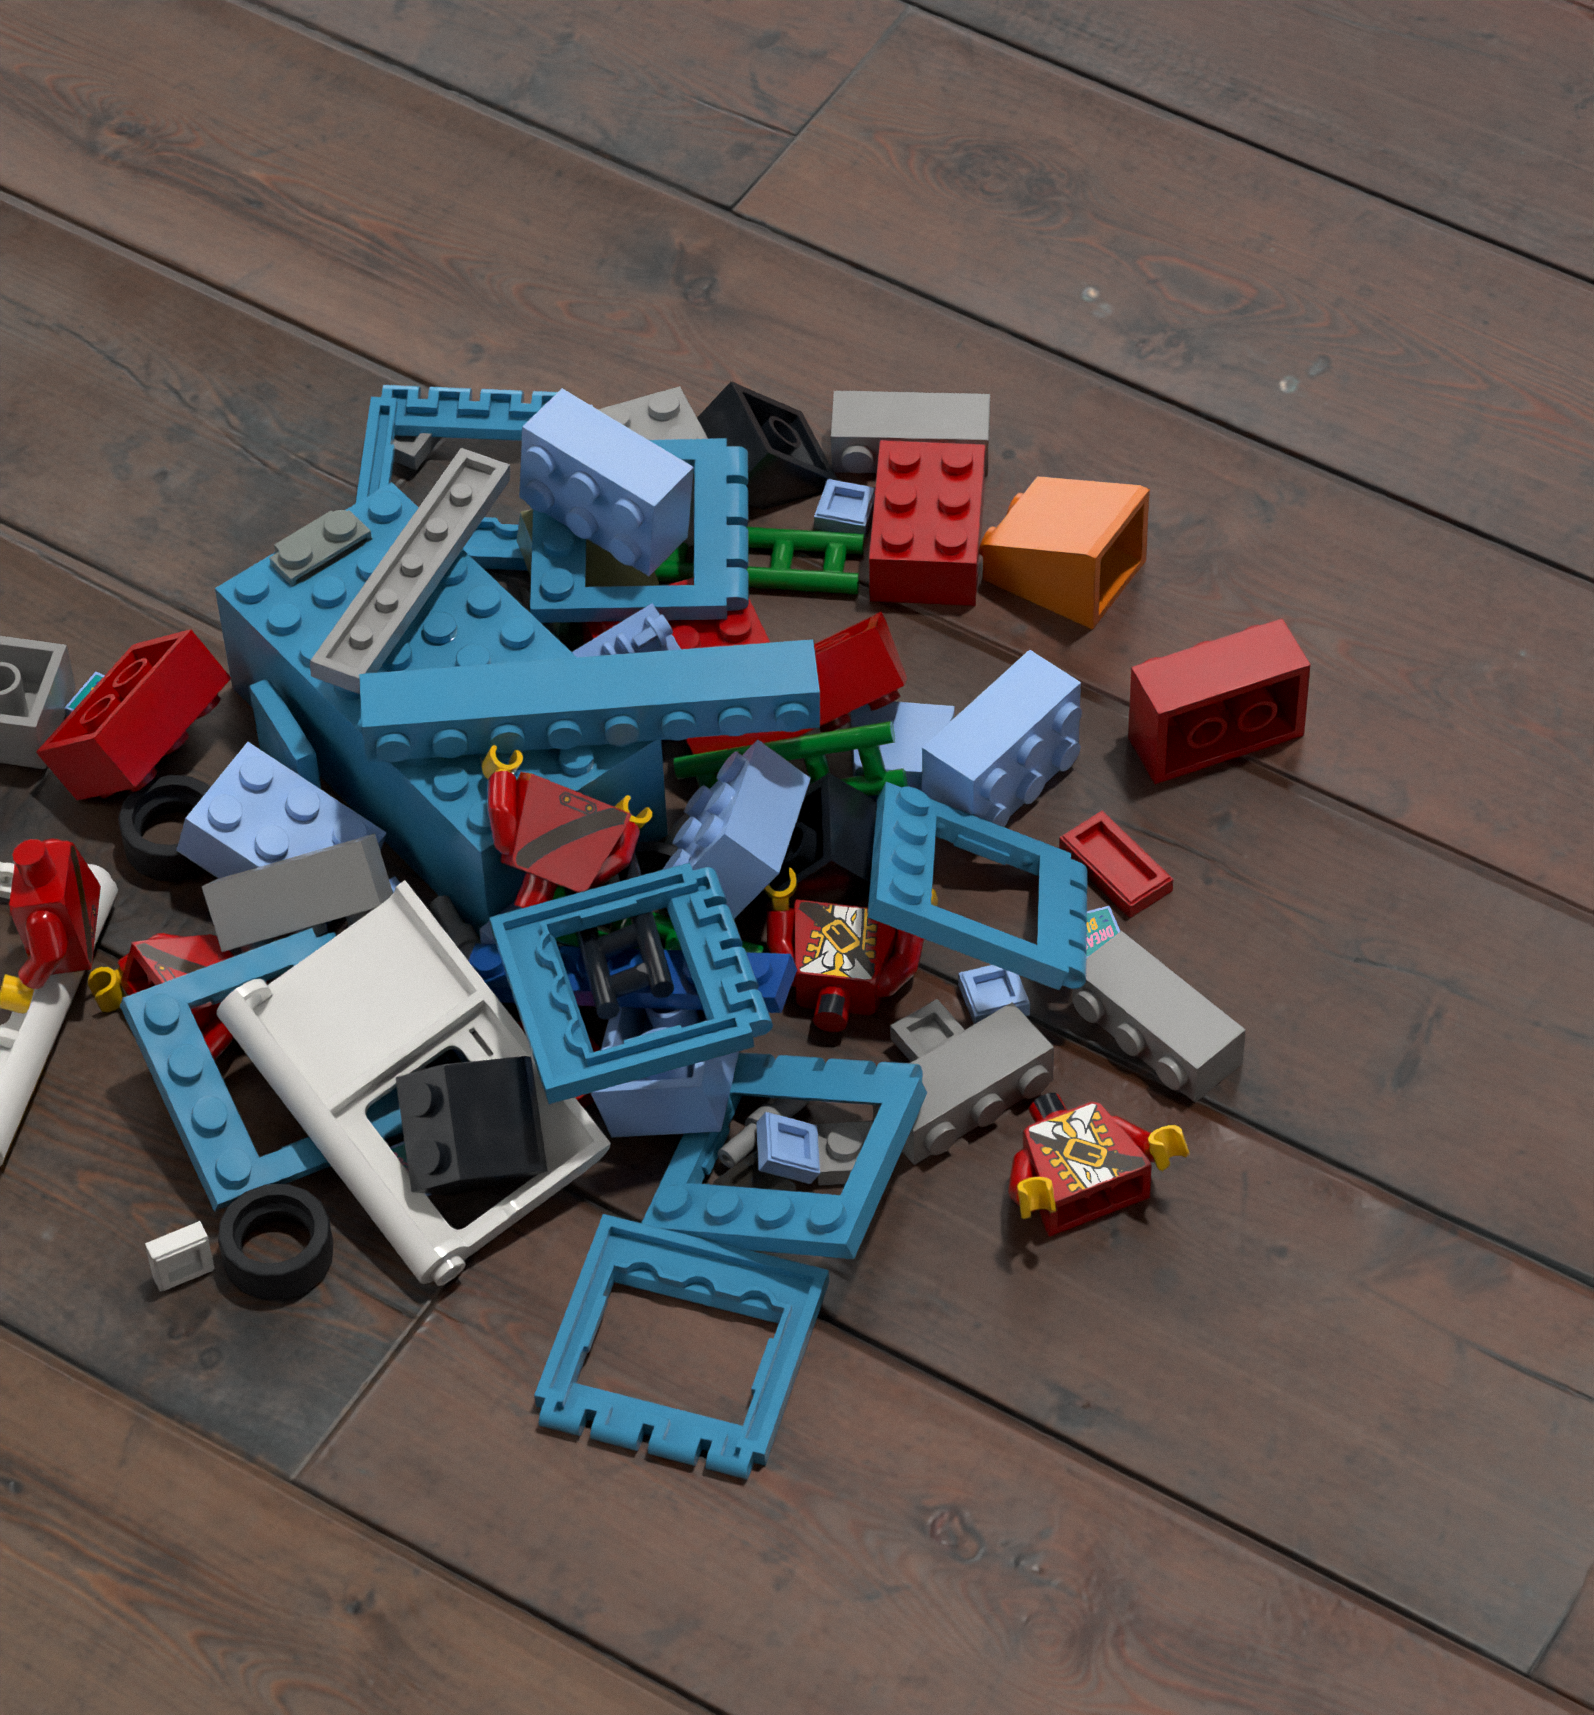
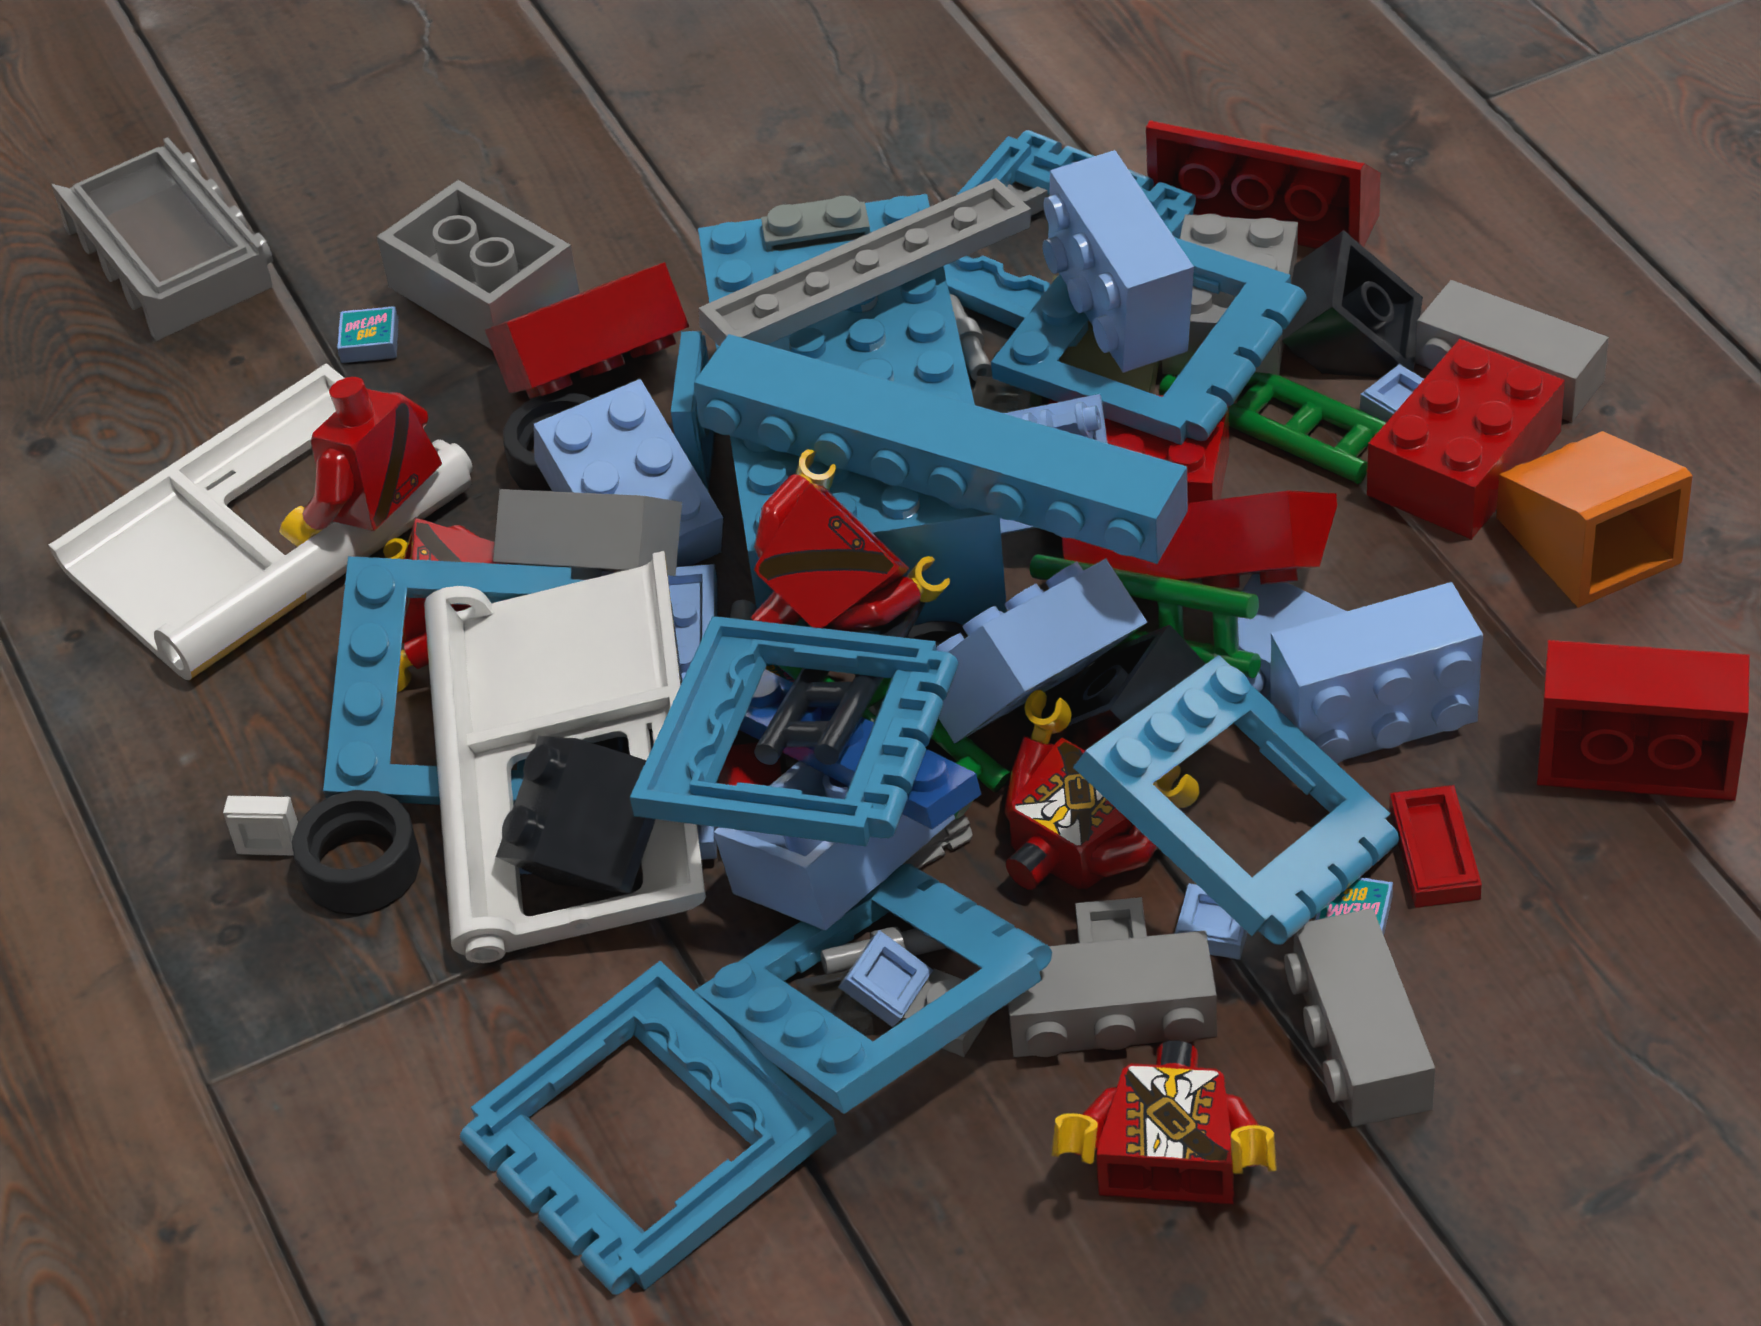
camera: 35 degrees right, 5 degrees down
(622, 362) = (1266, 181): none -> red slope

